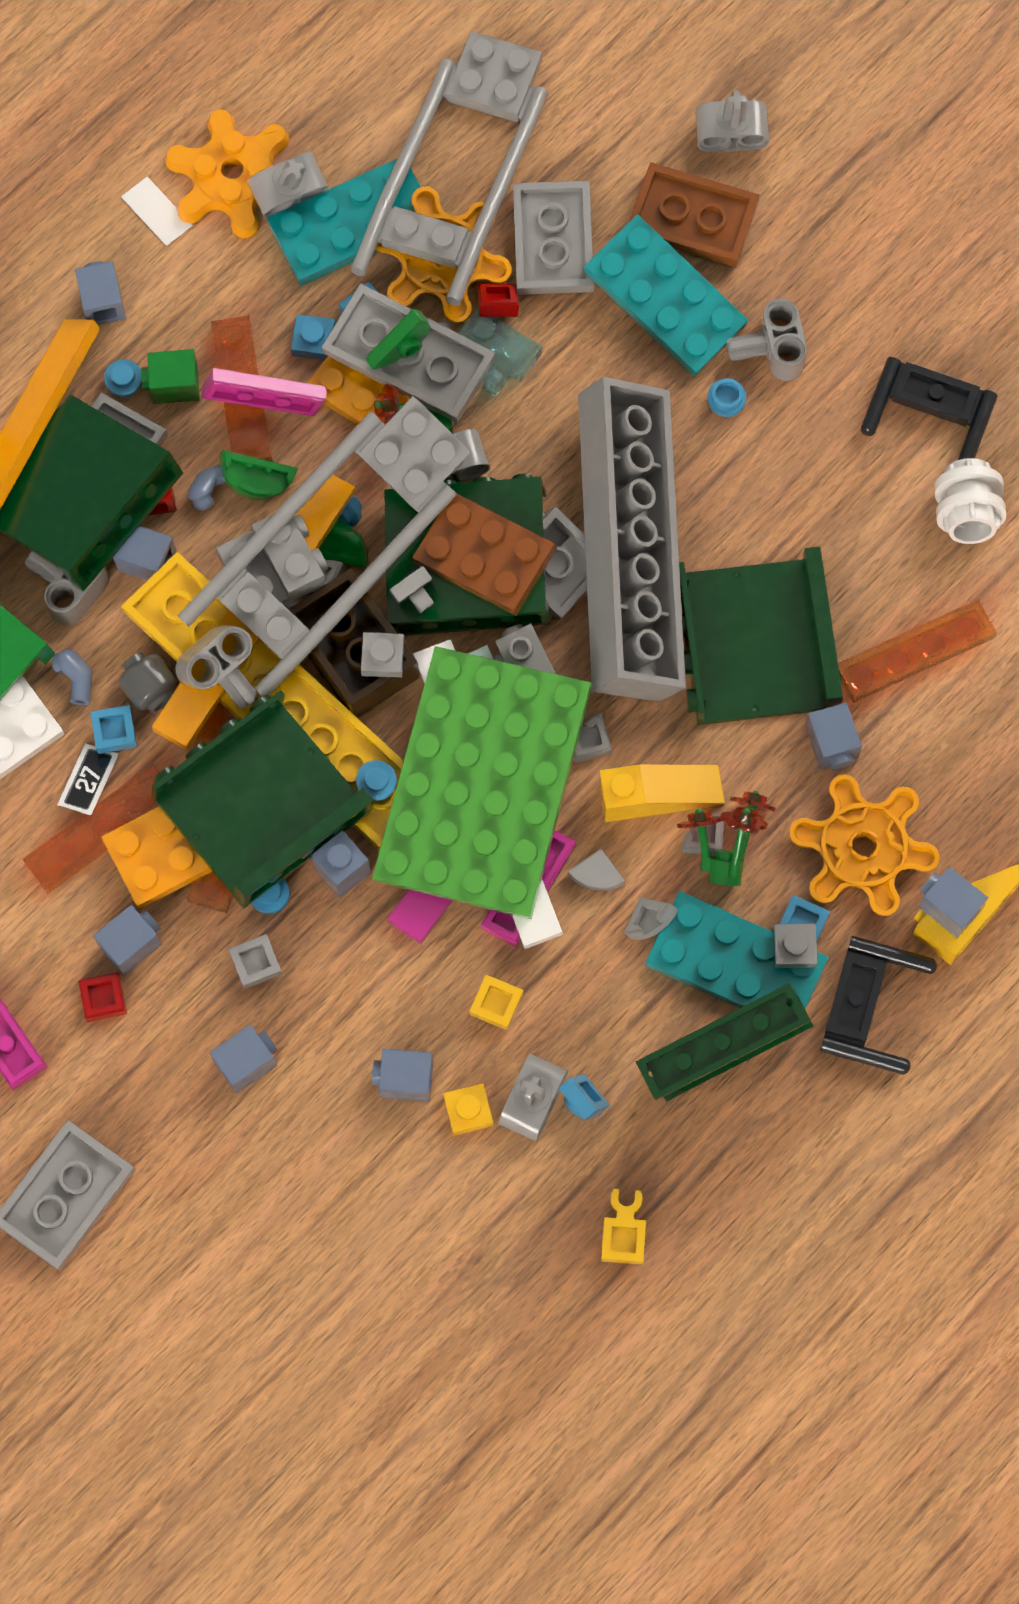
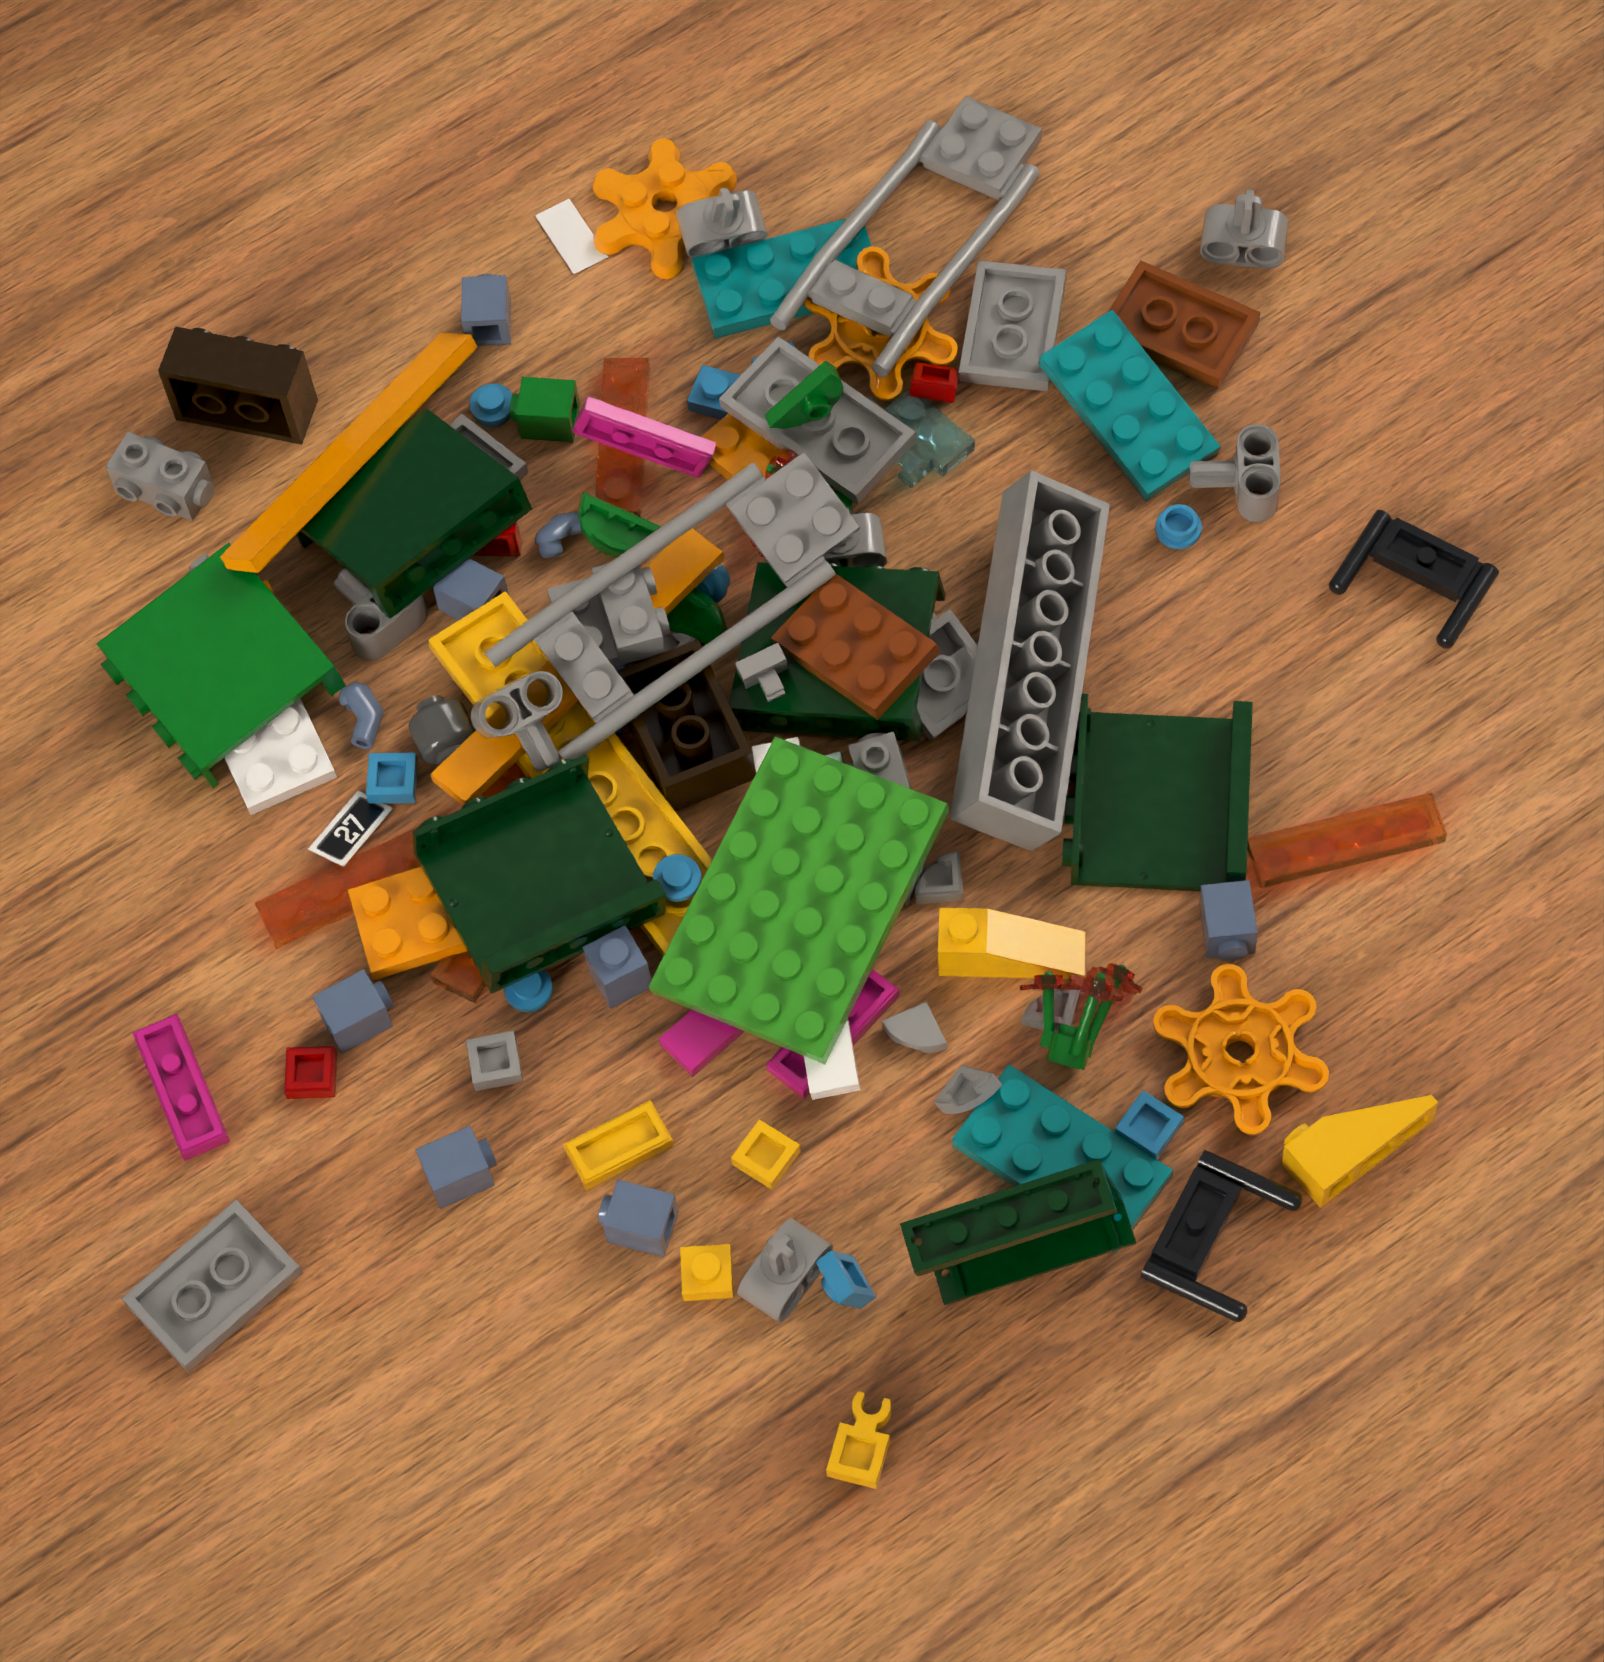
camera: 15 degrees right, 10 degrees down
(372, 1014) = (618, 1145): none -> yellow tile
(382, 654) = (712, 736): light grey plate -> none
(795, 945) = (1133, 1147): light grey plate -> none
(951, 901) = (1329, 1122): sand blue brick -> none
(970, 501) = (1442, 680): white piece -> none

